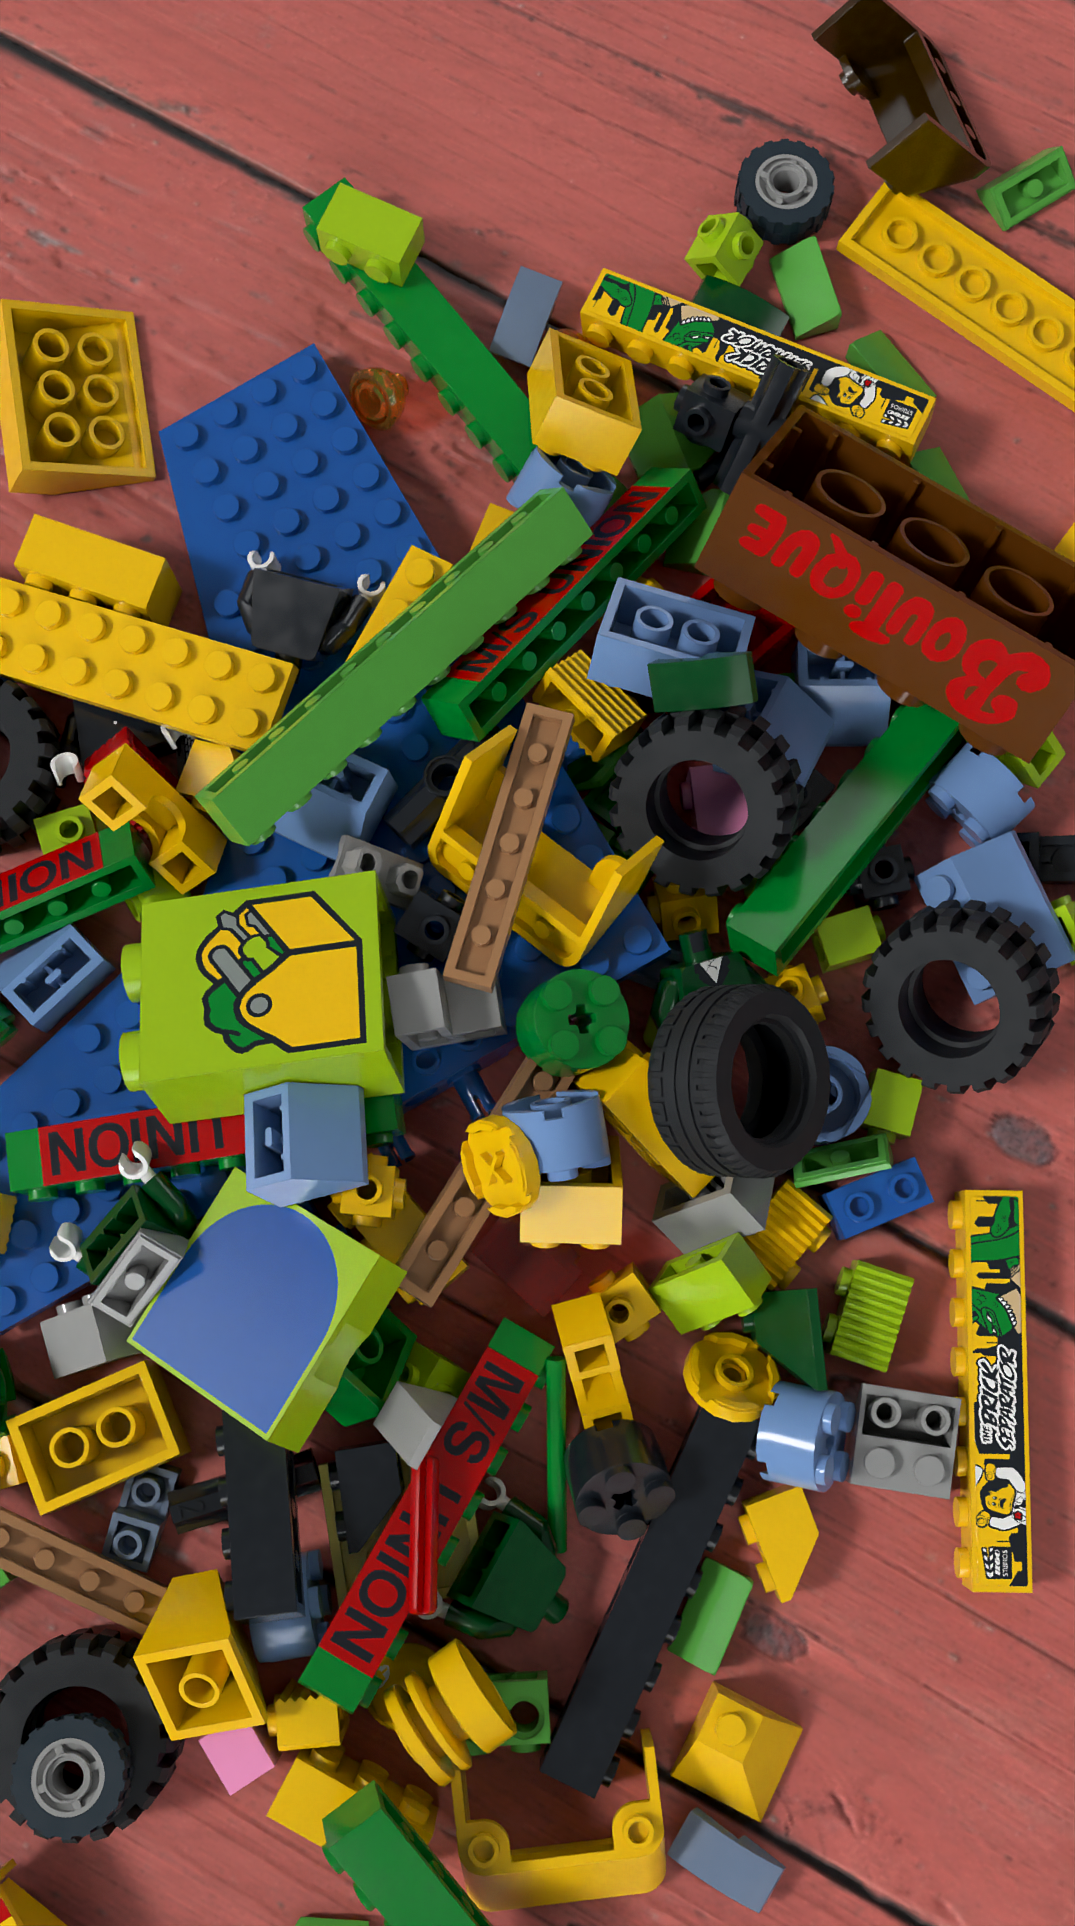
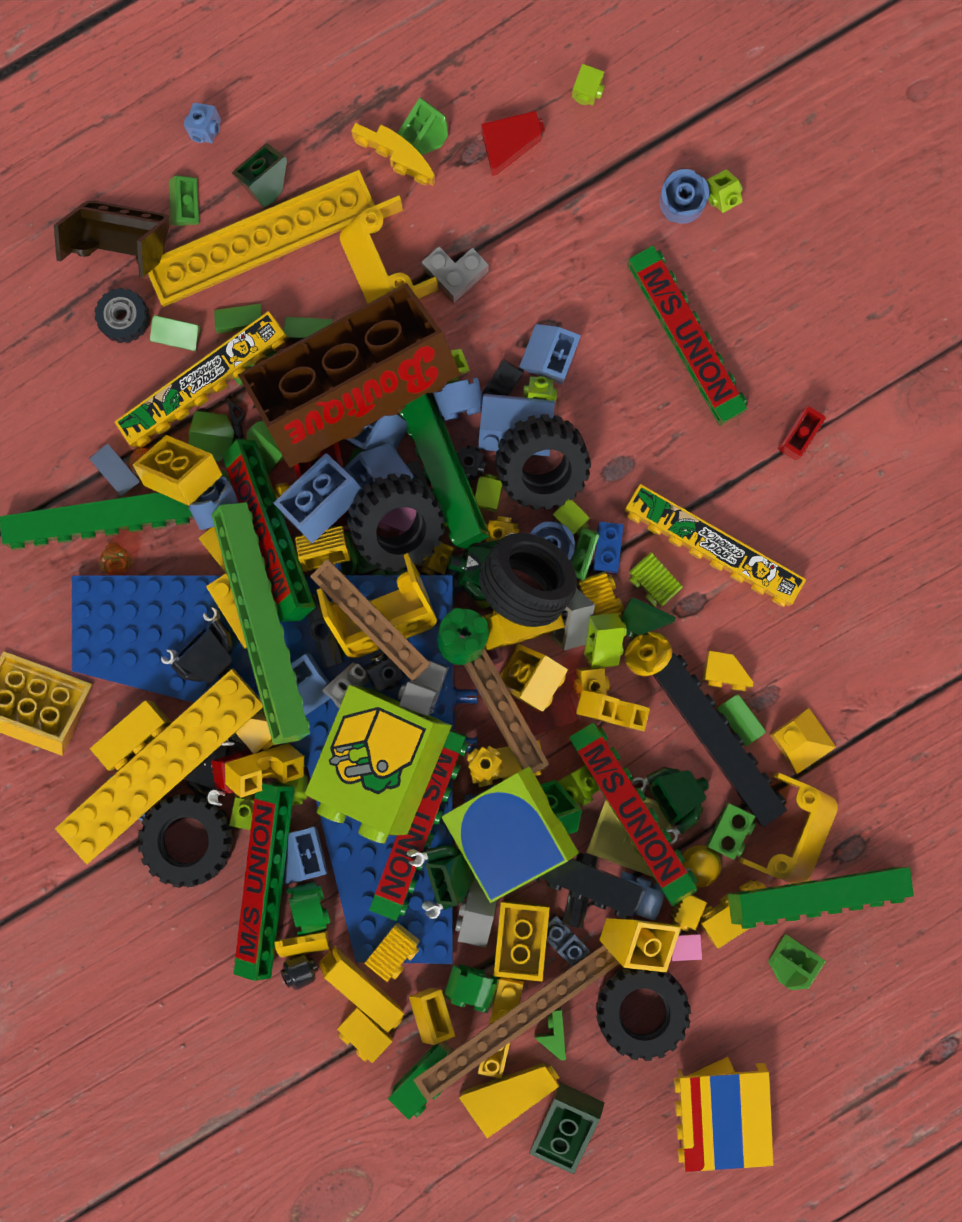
camera: 60 degrees left, 5 degrees up
(40, 1784) = (657, 1036): black wheel -> none
(138, 1274) = (465, 882): light grey slope -> none
(304, 1141) = (450, 778): medium blue slope -> none
(368, 1484) = (607, 834): black slope -> none
(370, 235) = (39, 521): lime brick -> none
(413, 1420) = (591, 798): light grey slope -> none
(424, 1537) = (641, 820): red axle -> none
(441, 1717) = (718, 850): yellow wheel -> none
(500, 1165) = (507, 701): yellow tile -> none
(556, 1449) = (637, 746): green bar -> none
(563, 1131) = (506, 671): medium blue brick -> none
(618, 1479) = (663, 726): black brick -> none
(703, 682) = (348, 496): dark green slope -> none
(708, 411) = (213, 414): black brick -> none
(724, 248) = (135, 360): lime brick -> none
(725, 1862) = (843, 770): sand blue slope -> none
(739, 305) = (168, 370): dark green slope -> none
(762, 417) = (235, 396): black piece -> none
(805, 1437) = (690, 637): medium blue brick -> none
(903, 1441) = (715, 597): light grey slope -> none

